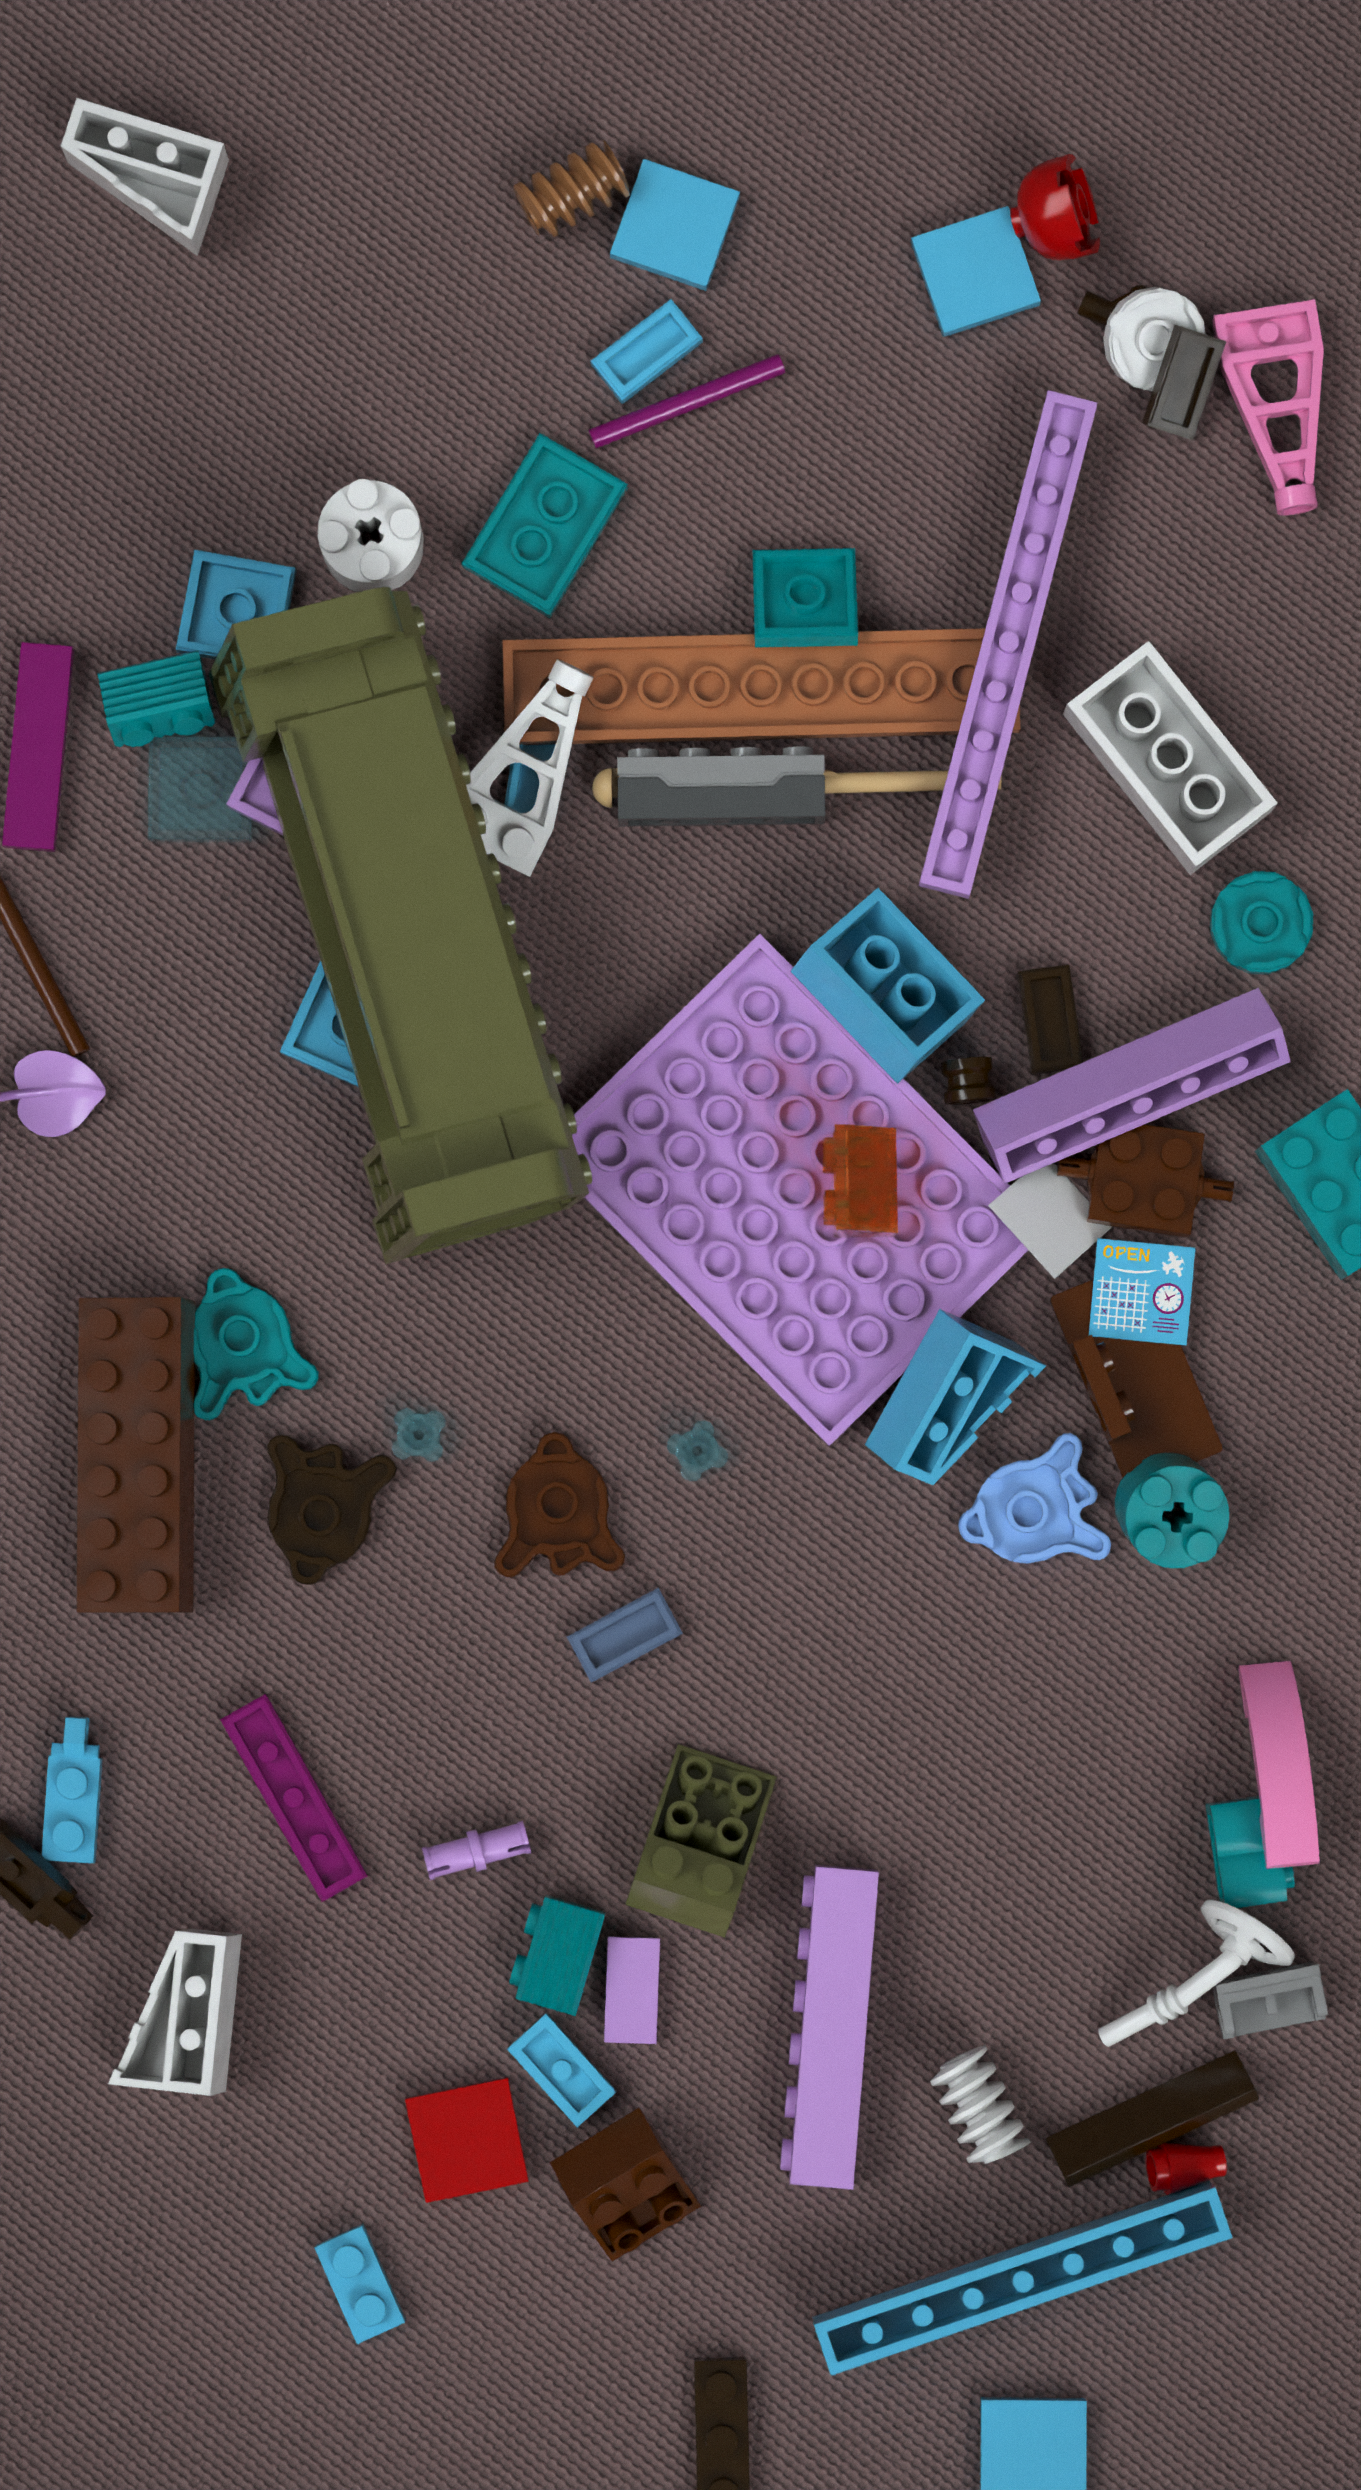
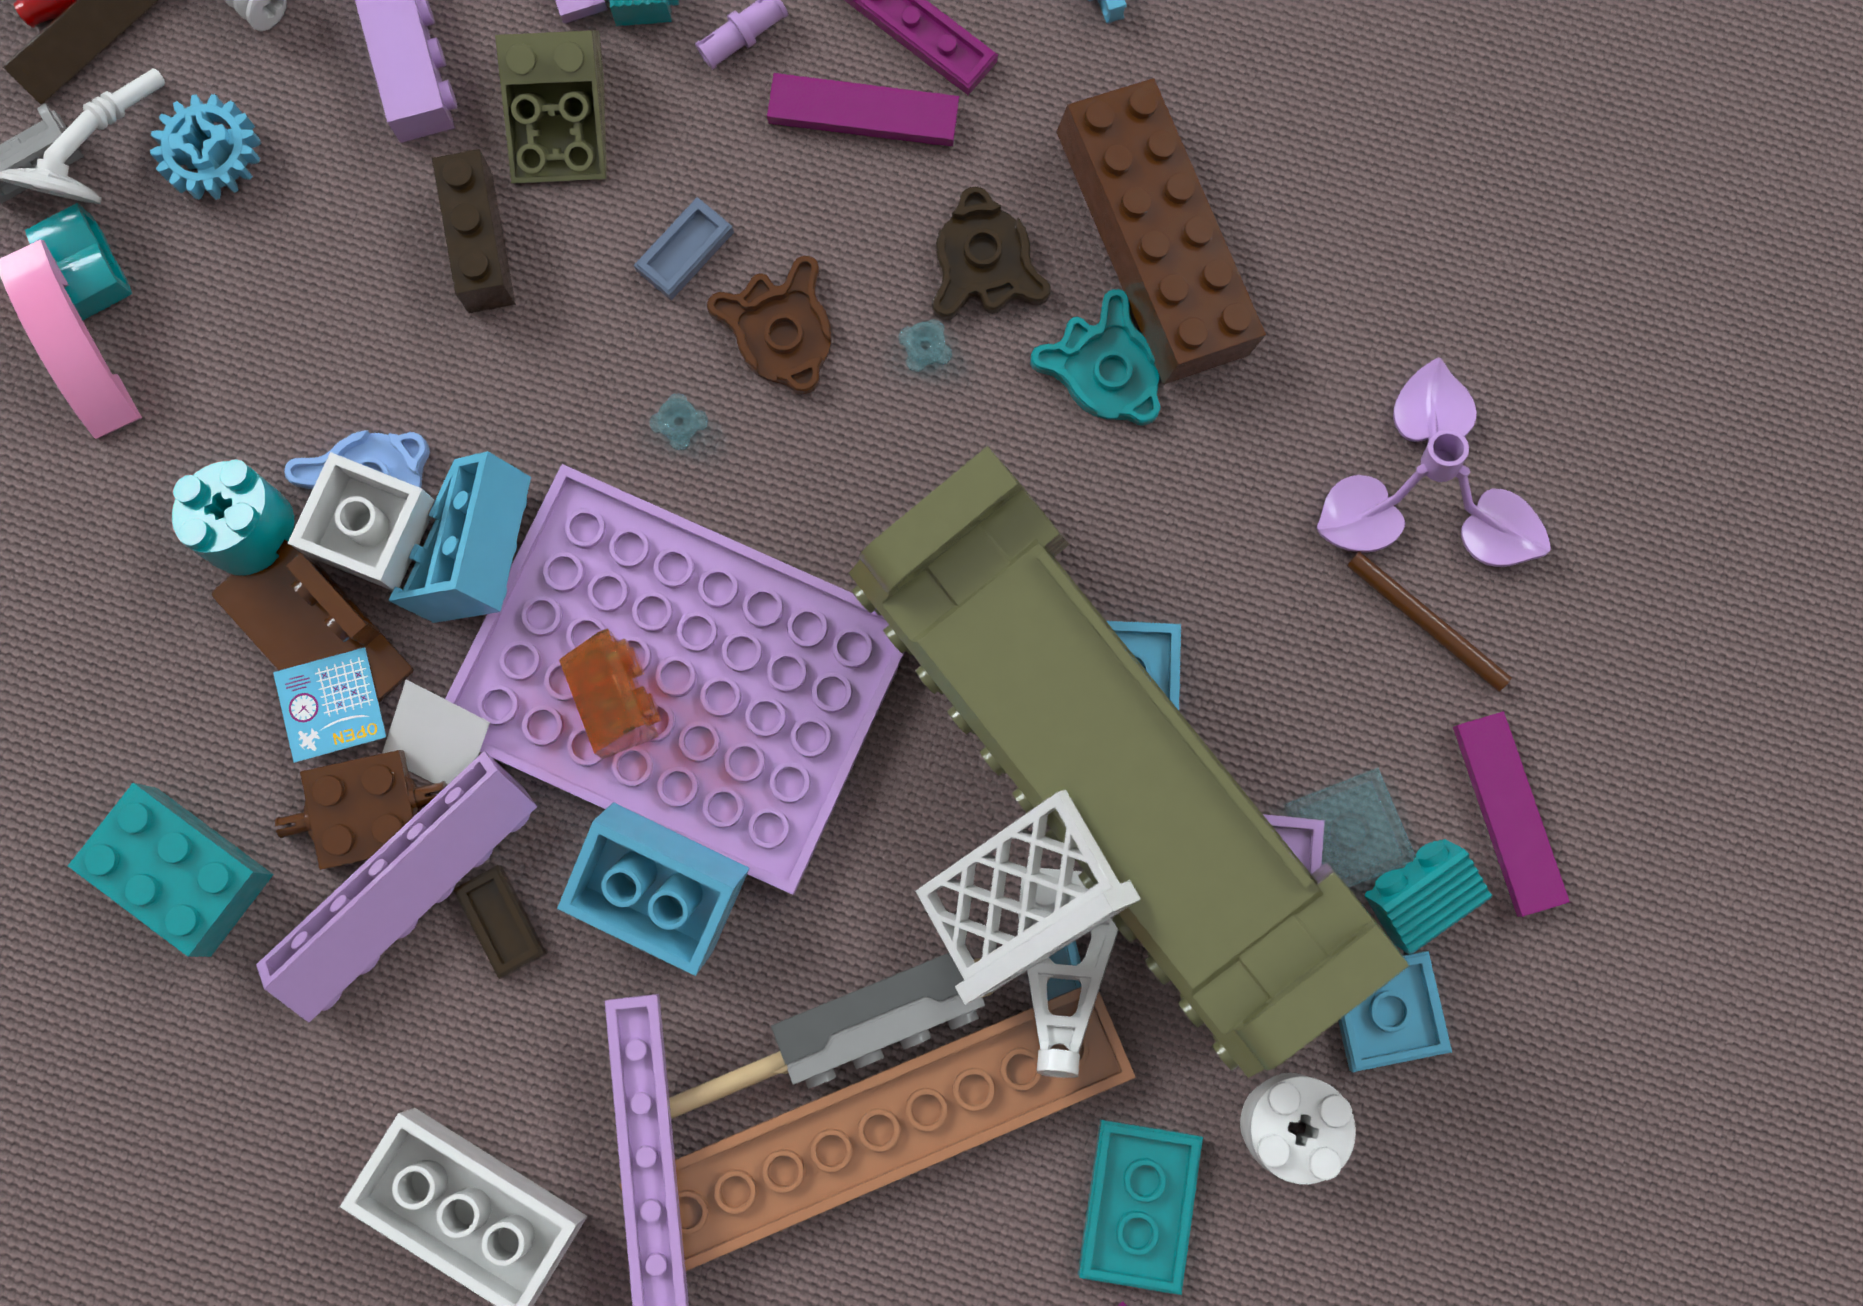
camera: 155 degrees right, 5 degrees down
(382, 1715) = (863, 109): none -> magenta tile
(551, 787) = (1054, 929): none -> white fence
(805, 597) = (869, 1232): teal tile -> none
(832, 1727) = (473, 231): none -> dark brown brick
(968, 1080) = (552, 833): dark brown wheel -> none
(1042, 1449) = (362, 521): none -> white brick
(1054, 1926) = (196, 142): none -> medium azure gear
(1261, 922) = (333, 1089): teal tile -> none

